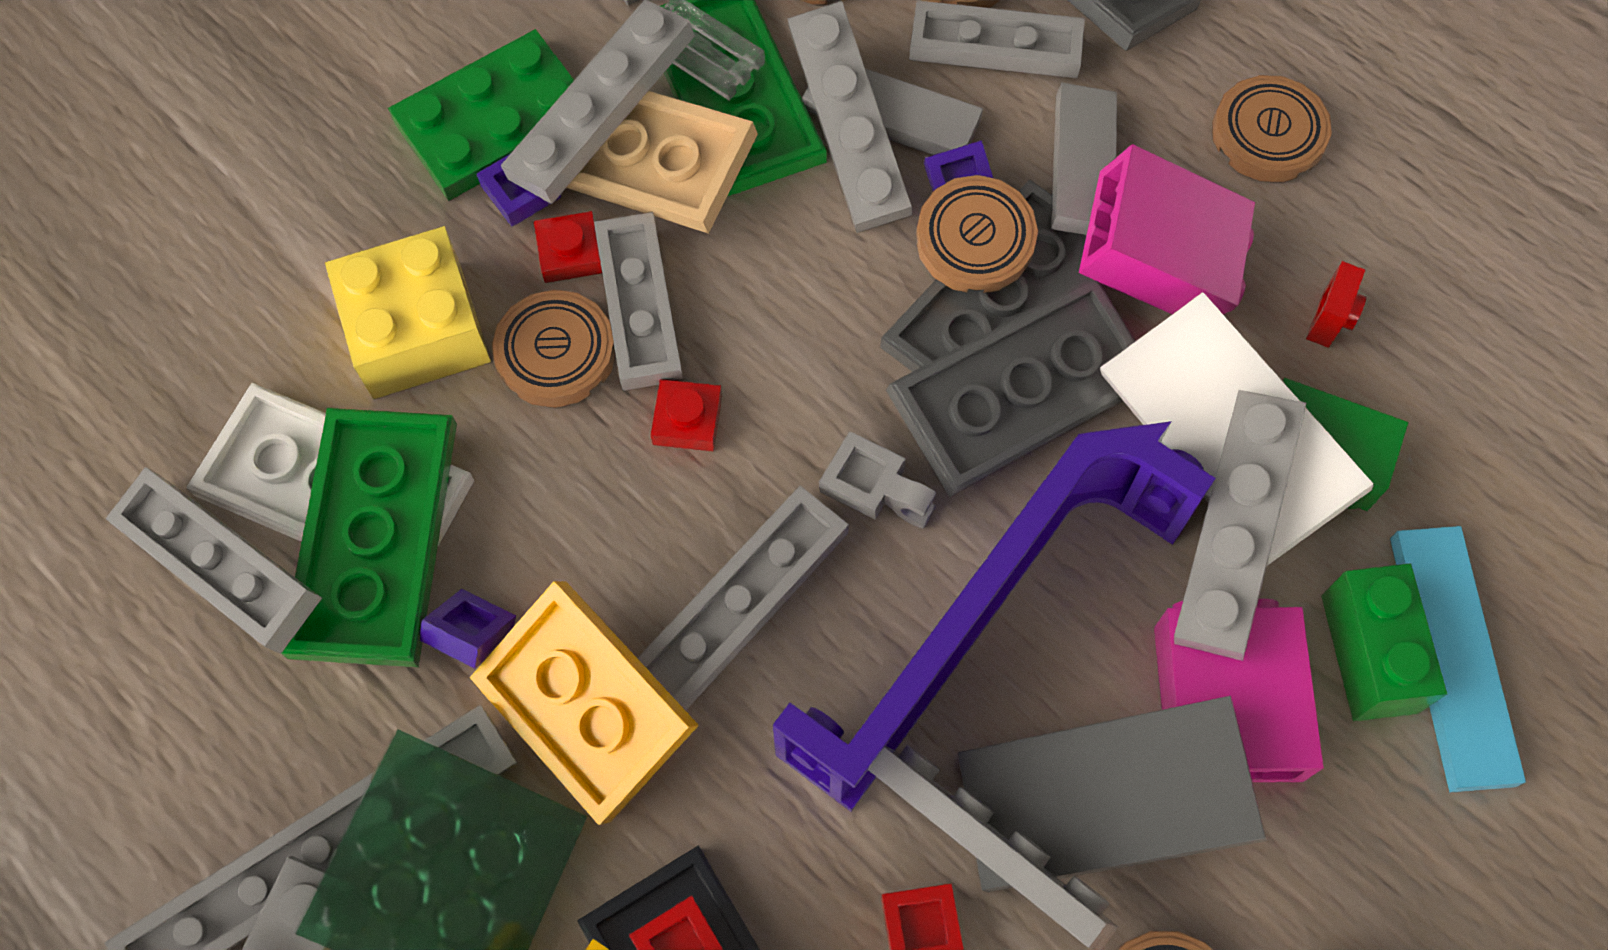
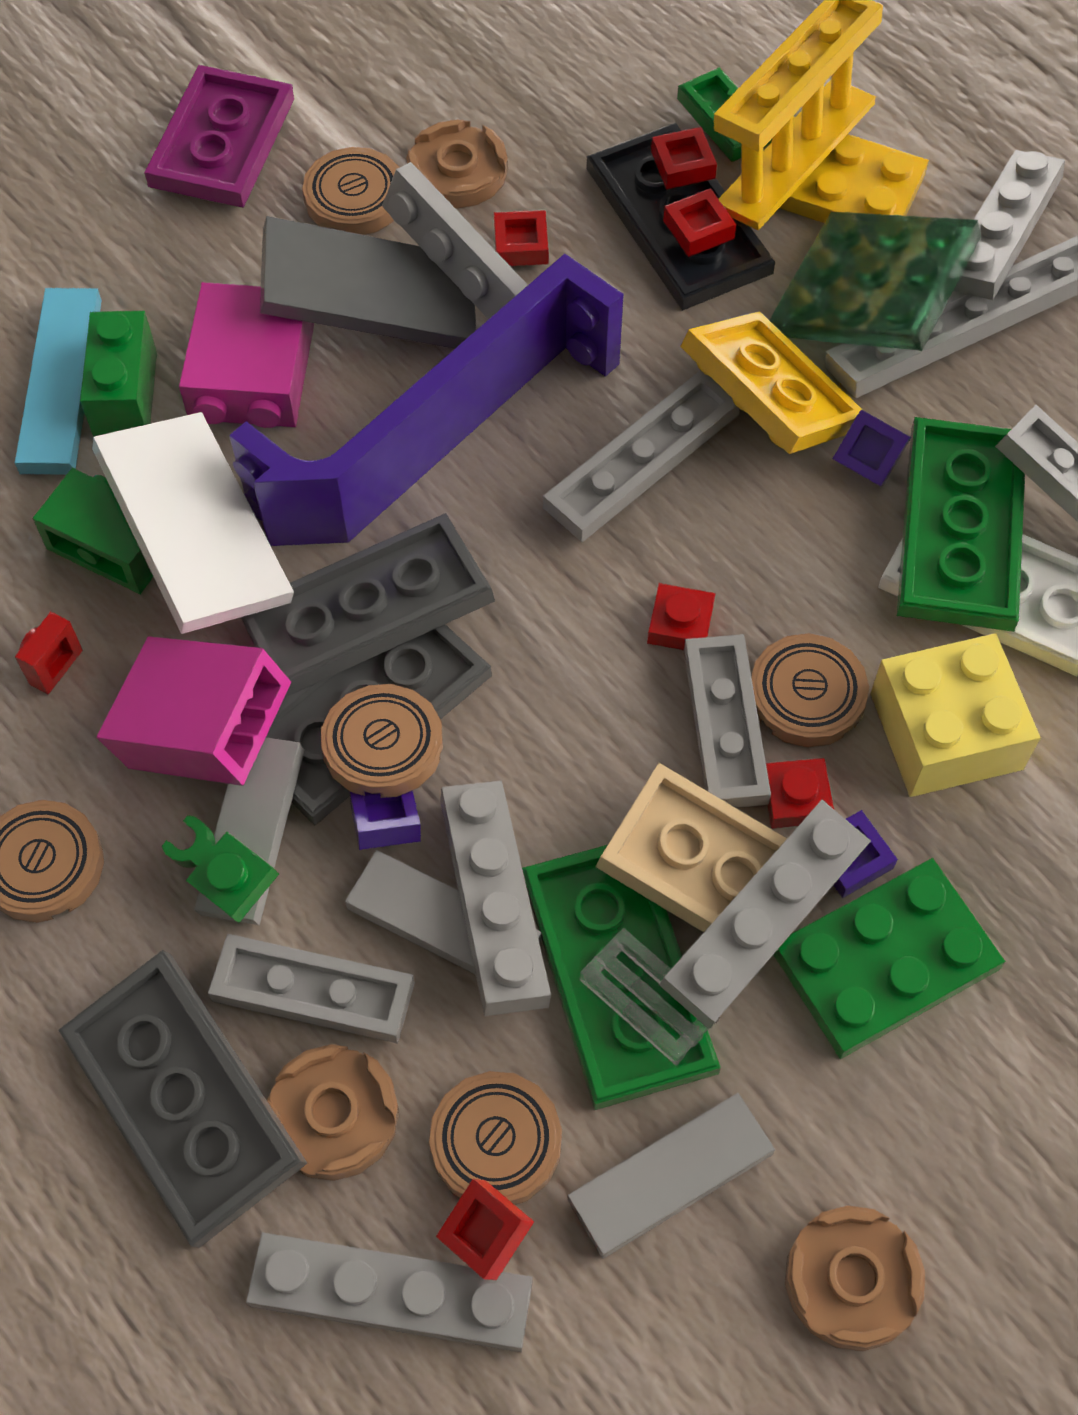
camera: 175 degrees left, 5 degrees down
(870, 476) = (515, 540): light grey plate -> none
(1098, 106) = (224, 871): none -> green plate
(1240, 525) = (201, 441): light grey plate -> none

